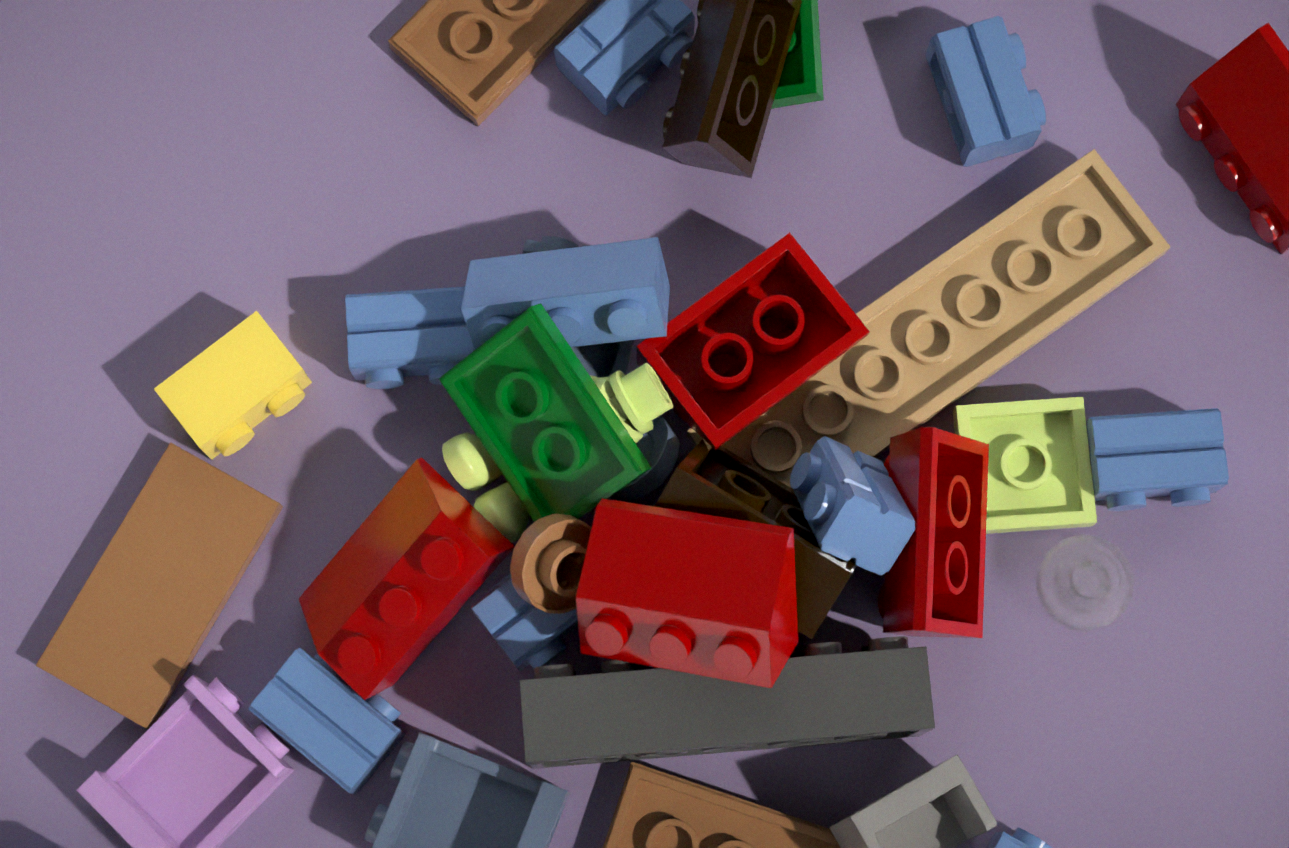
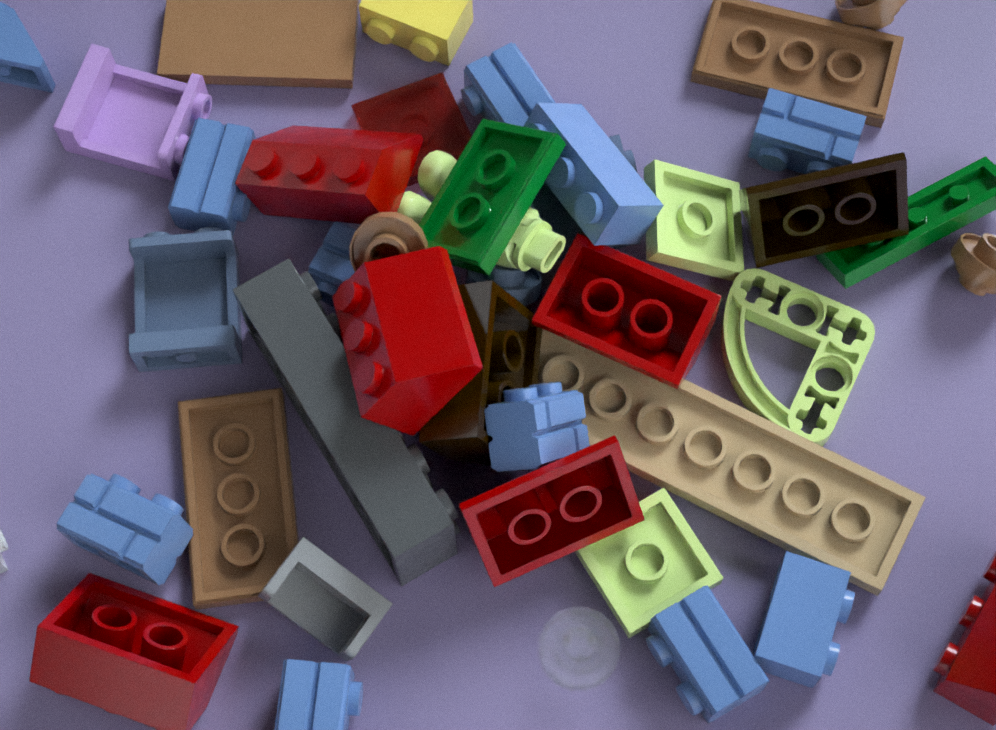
camera: 65 degrees right, 10 degrees down
(368, 450) = (418, 108): none -> clear red tile
(673, 202) = (698, 223): none -> yellowish green plate
(880, 156) = (829, 349): none -> yellowish green beam
(985, 90) = (922, 397): medium blue brick -> none
(1162, 342) = (802, 619): none -> medium blue brick

